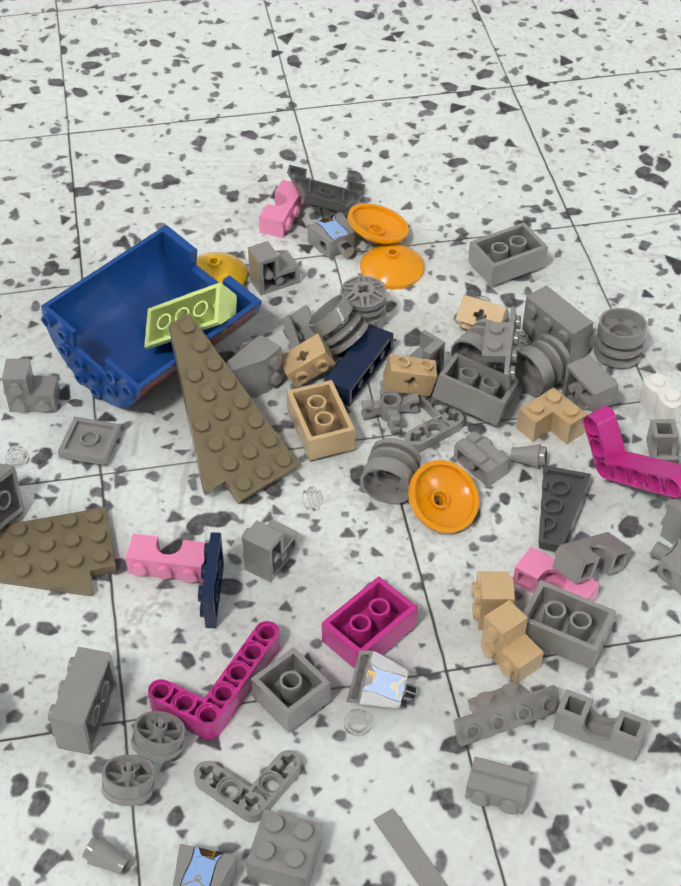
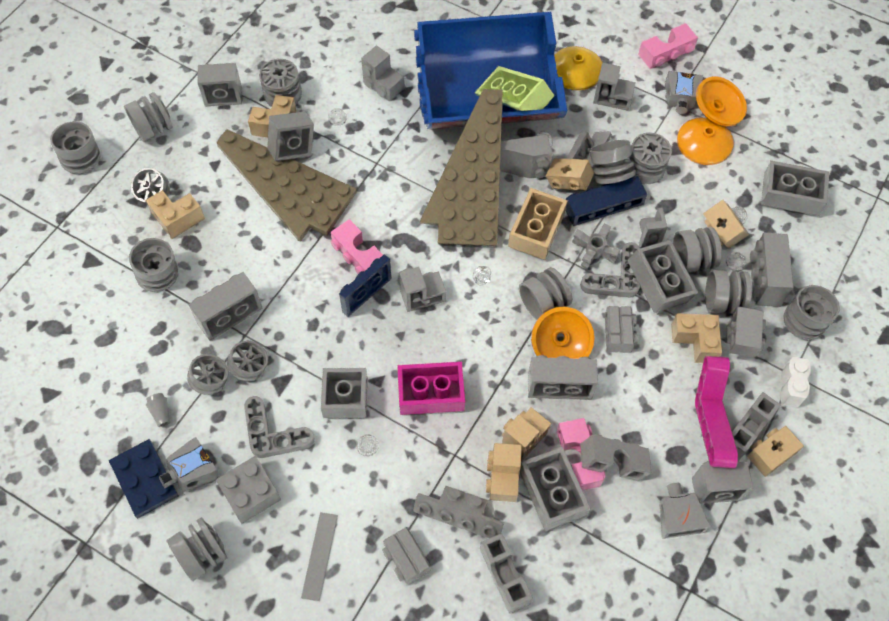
camera: 40 degrees right, 15 degrees up
(89, 440) = (387, 135): light grey plate -> none
(225, 687) = (313, 358): dark pink beam -> none
(323, 194) = (704, 55): dark grey wing -> none
(379, 682) = (396, 432): torso -> none
(410, 375) = (624, 234): tan brick -> none
(478, 528) = (562, 378): none -> light grey brick
(500, 343) = (704, 257): light grey bracket -> none
(530, 455) = (658, 354): light grey cone -> none
(560, 504) = (644, 401): dark grey wing -> none

